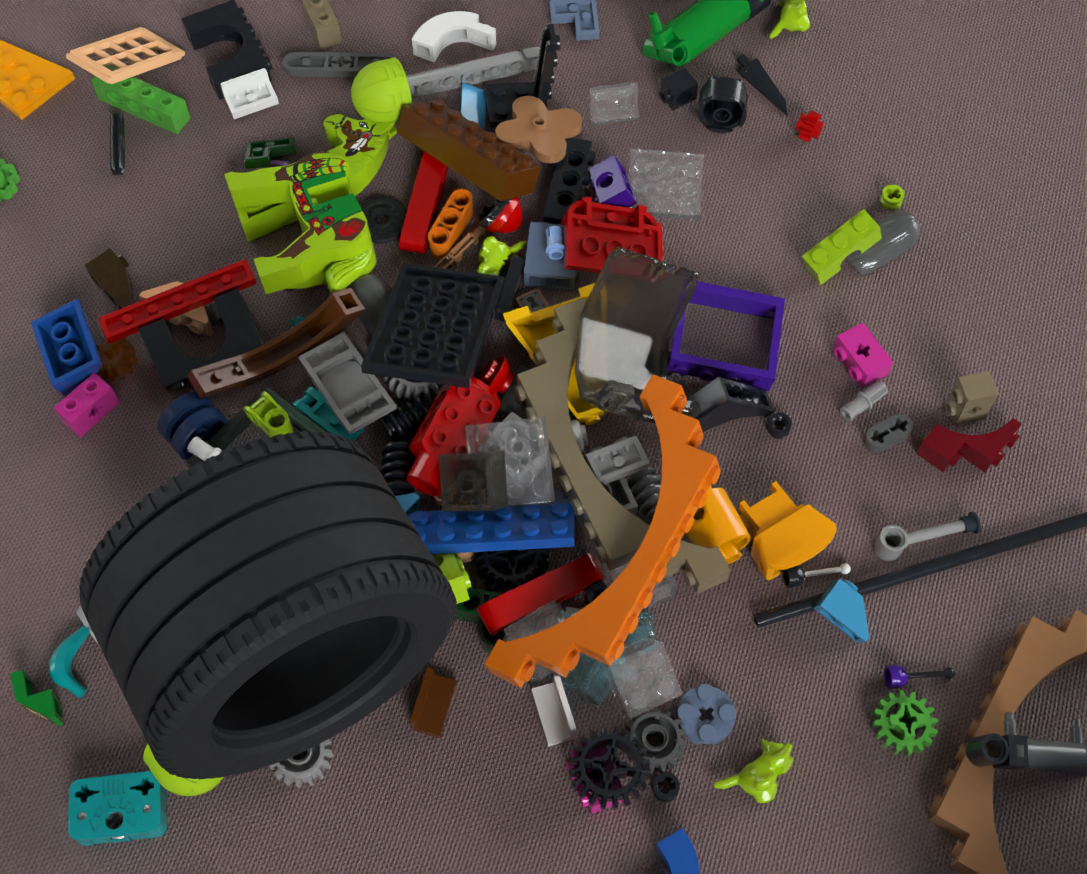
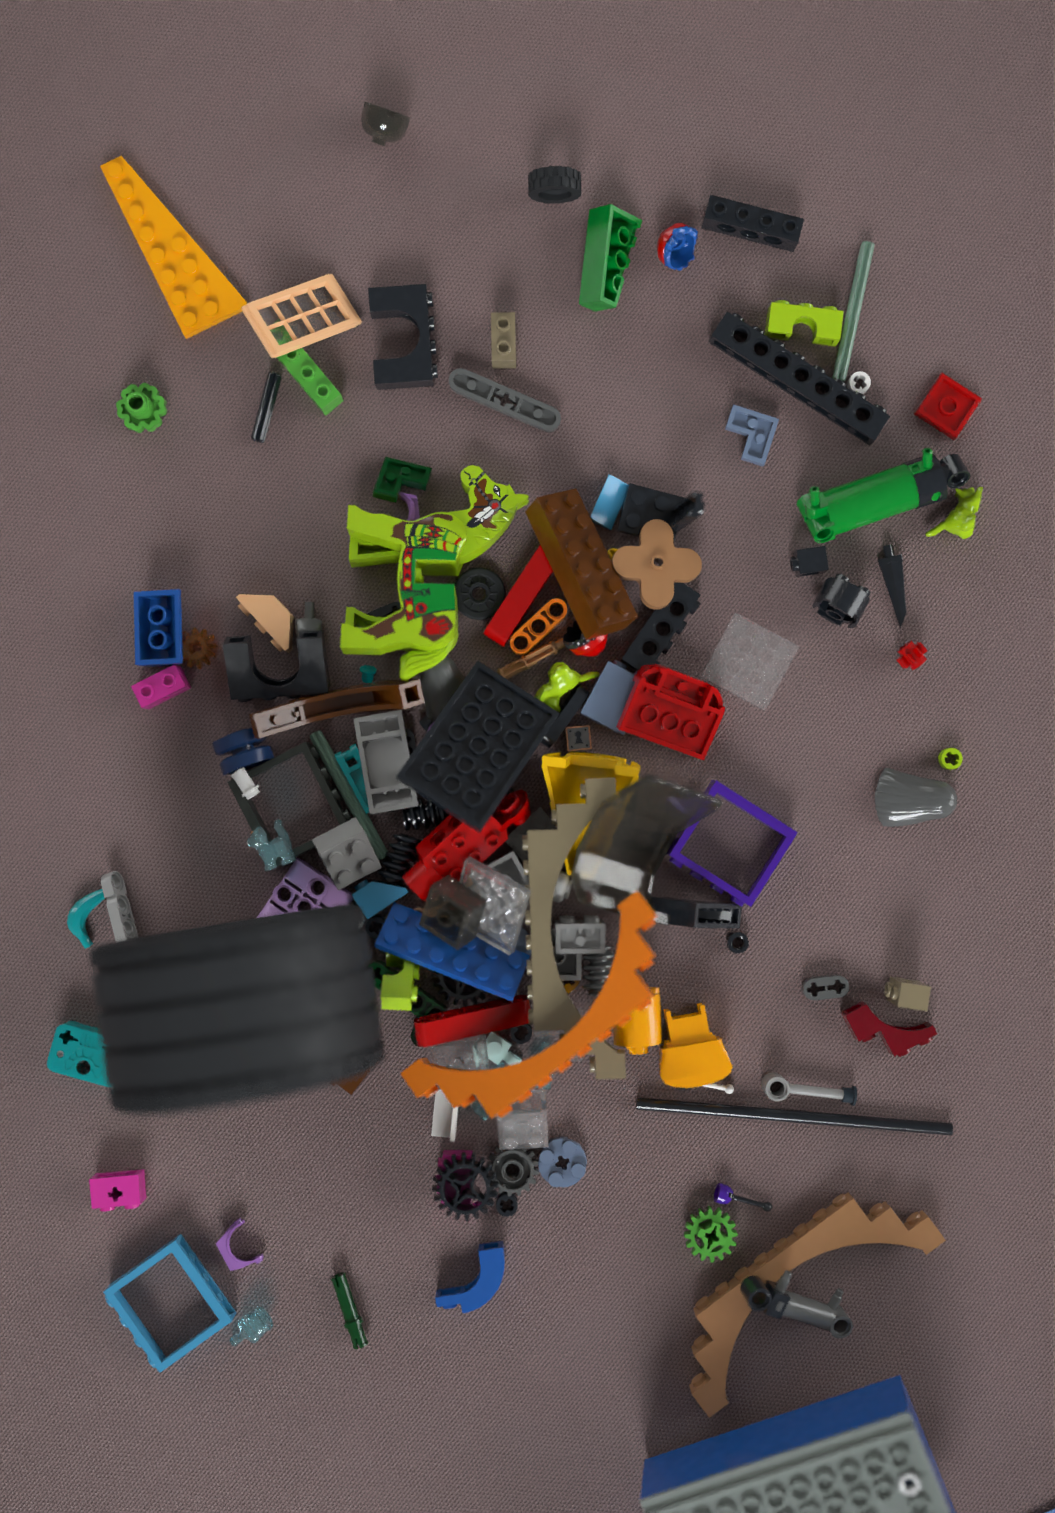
camera: 25 degrees right, 25 degrees up
(44, 704) = (55, 948): green slope -> none
(112, 277) = (220, 566): dark brown slope -> none
(176, 300) = (266, 622): red plate -> none
(249, 93) = (405, 403): white bracket -> none
(267, 414) = (308, 771): lime piece -> none
(384, 88) = (527, 465): piece -> none
(449, 29) = (622, 399): white arch -> none
(555, 246) = (618, 696): light blue pin -> none
(611, 183) = (704, 661): dark purple brick -> none
(613, 103) = (741, 557): clear bracket -> none
(760, 775) = (580, 1229): lime animal -> none
(844, 609) = (708, 1128): dark azure slope -> none
(856, 234) = (873, 802): lime arch -> none
(862, 355) = (843, 896): dark pink brick -> none
(863, 401) = (820, 950): light grey axle -> none

